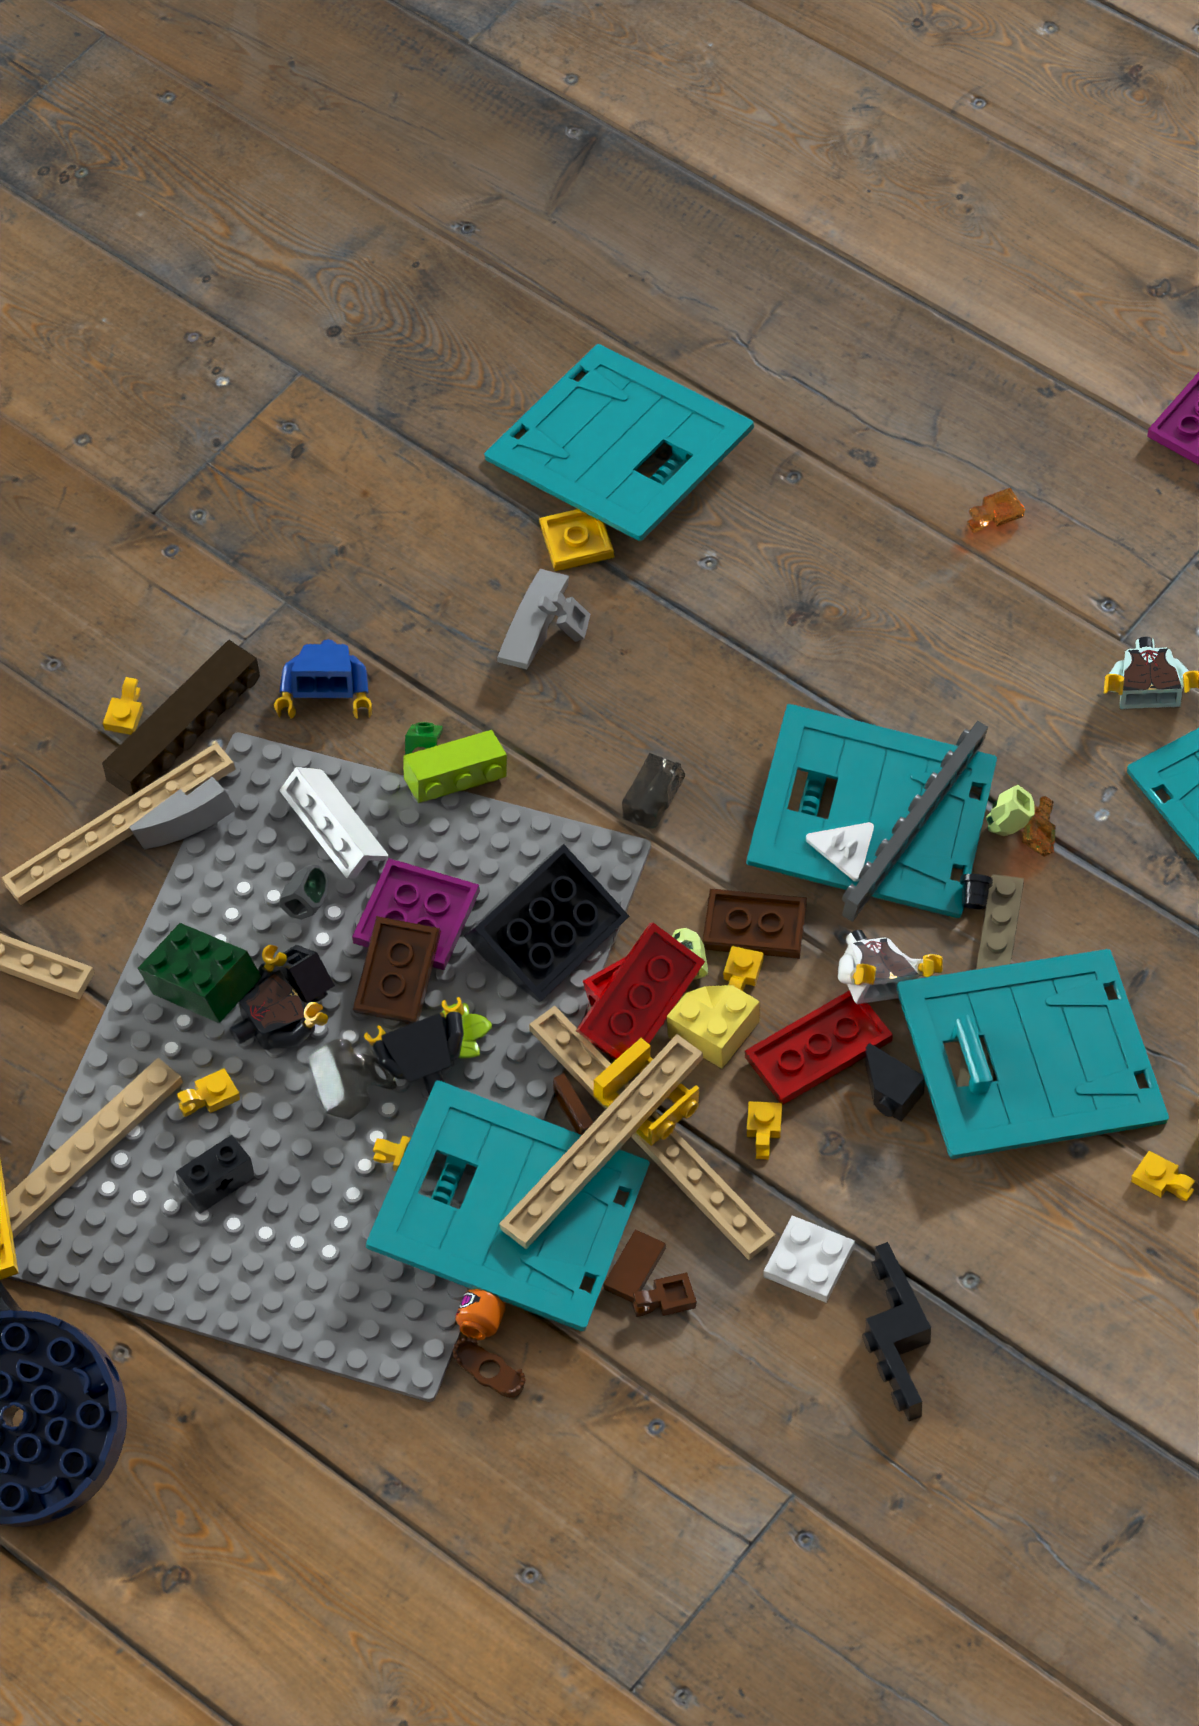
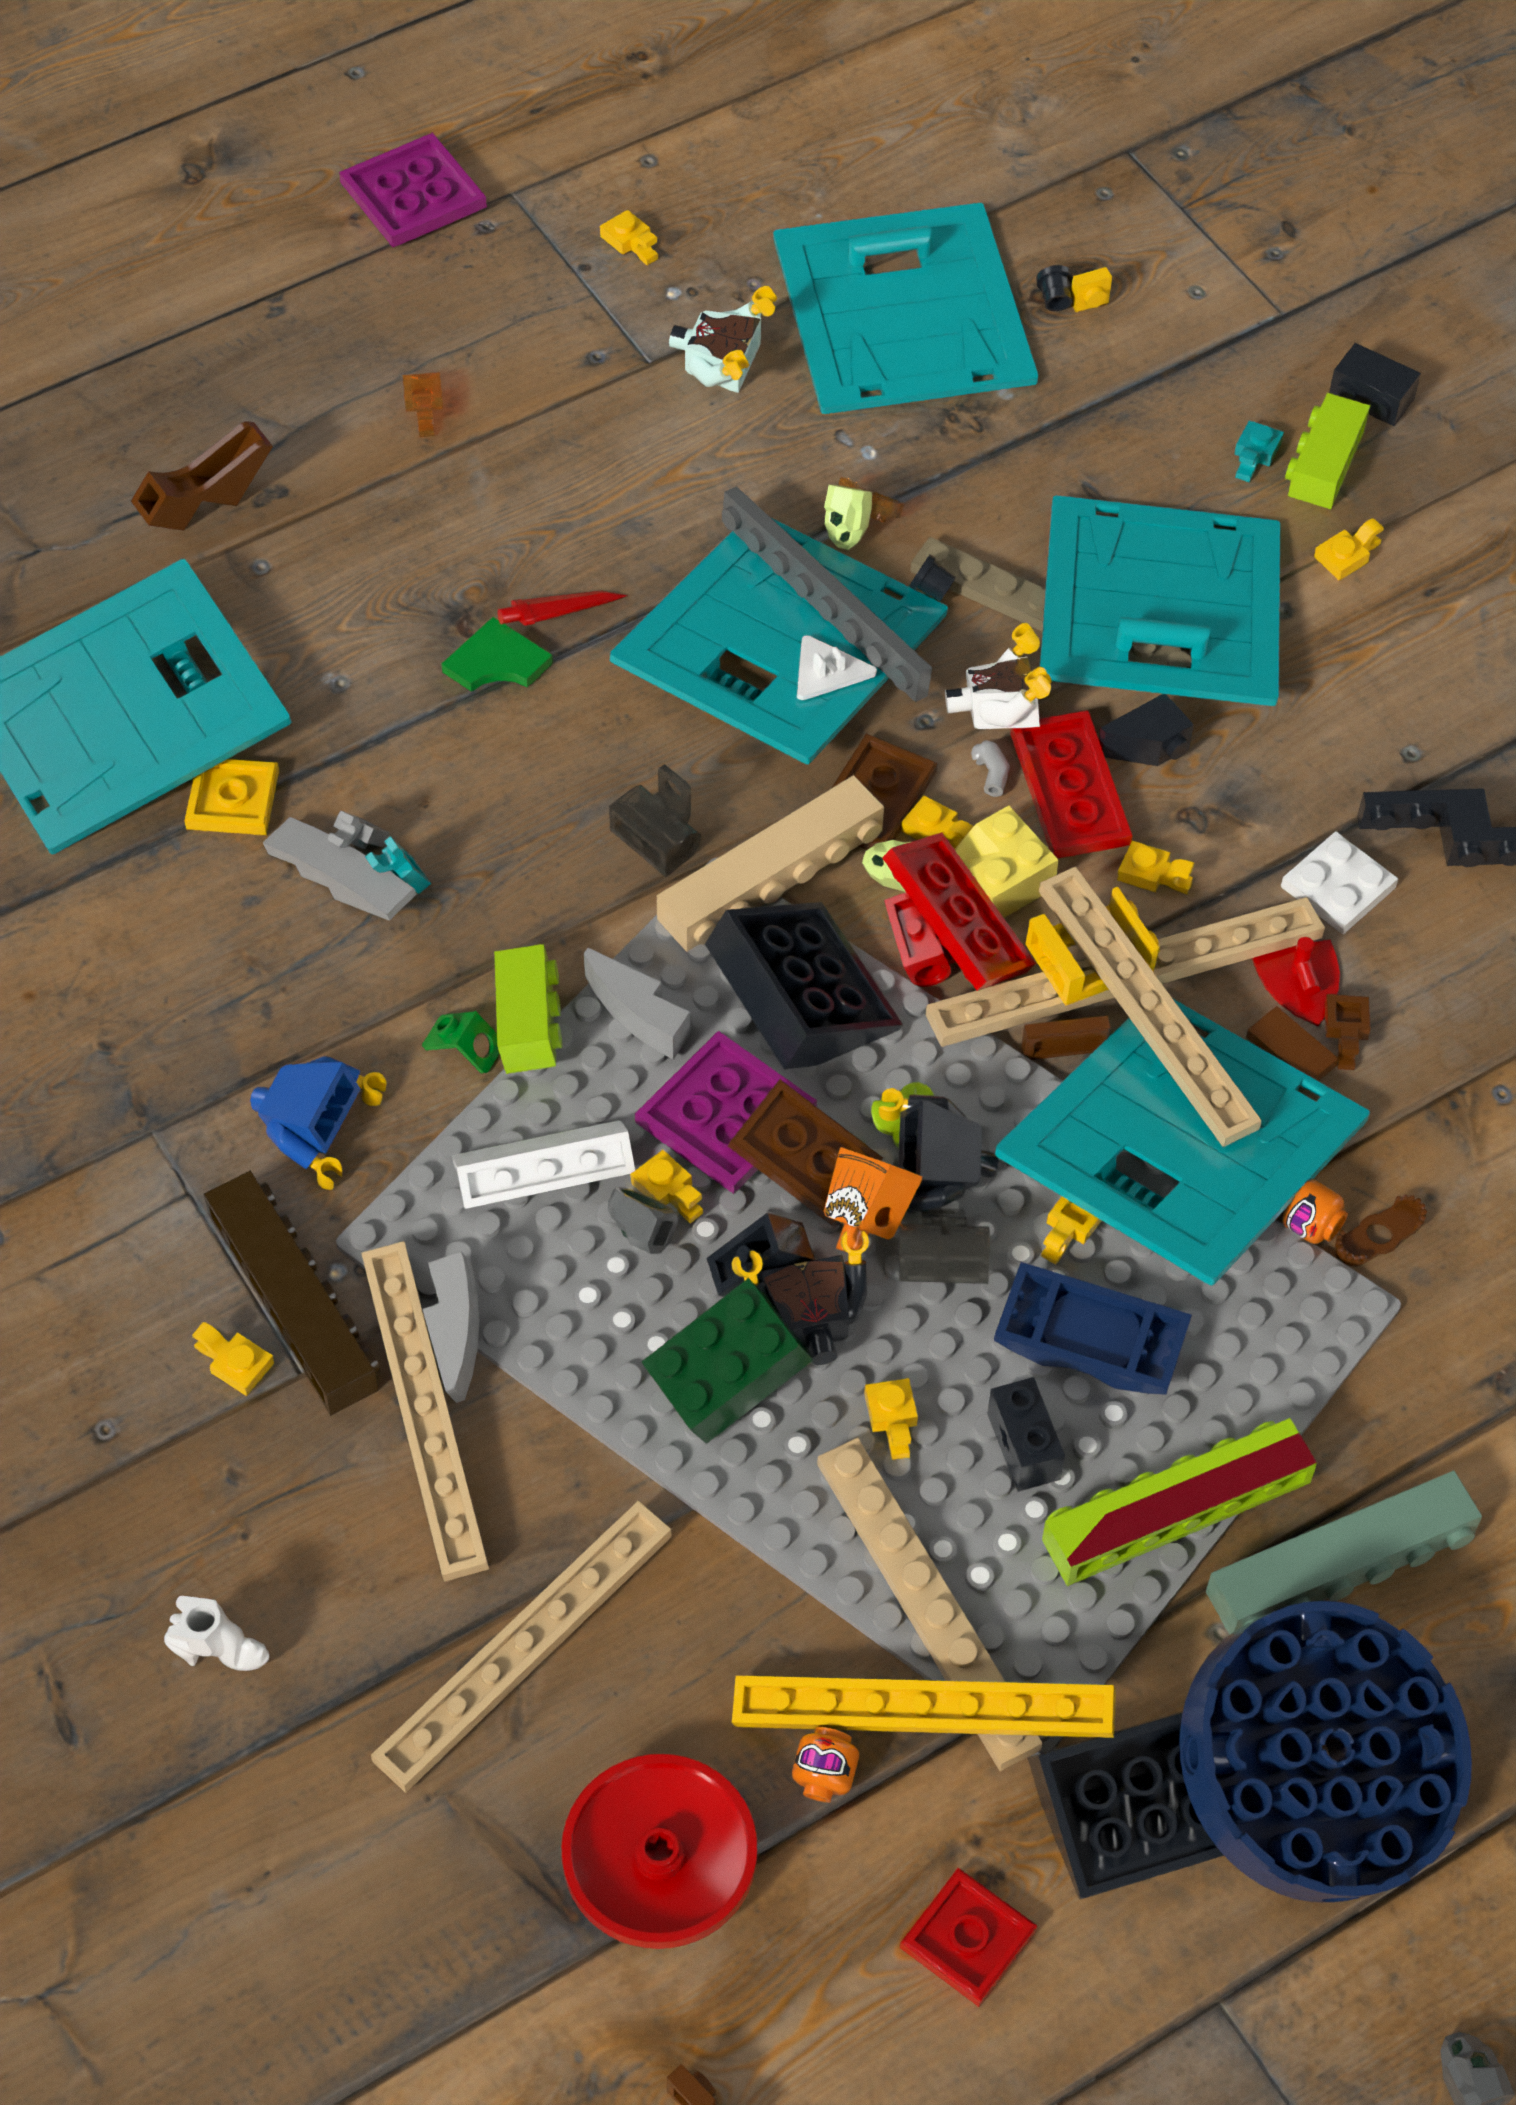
camera: 75 degrees left, 0 degrees up
(198, 1286) = (1177, 1500): none -> brick
(199, 1409) = (1347, 1552): none -> sand green brick
(318, 1192) = (1092, 1330): none -> dark blue slope
(344, 898) = (668, 1183): none -> yellow plate
(355, 1015) = (868, 1196): none -> orange torso
(483, 829) = (637, 1003): none -> light grey slope
(551, 652) = (400, 863): none -> teal plate
(646, 870) = (771, 861): none -> tan brick
(709, 1258) = (1301, 977): none -> red shield
(773, 644) = (496, 655): none -> green tile
(817, 992) = (989, 754): none -> light grey arm
(828, 655) = (544, 608): none -> red bar
(846, 412) = (215, 477): none -> reddish brown arch

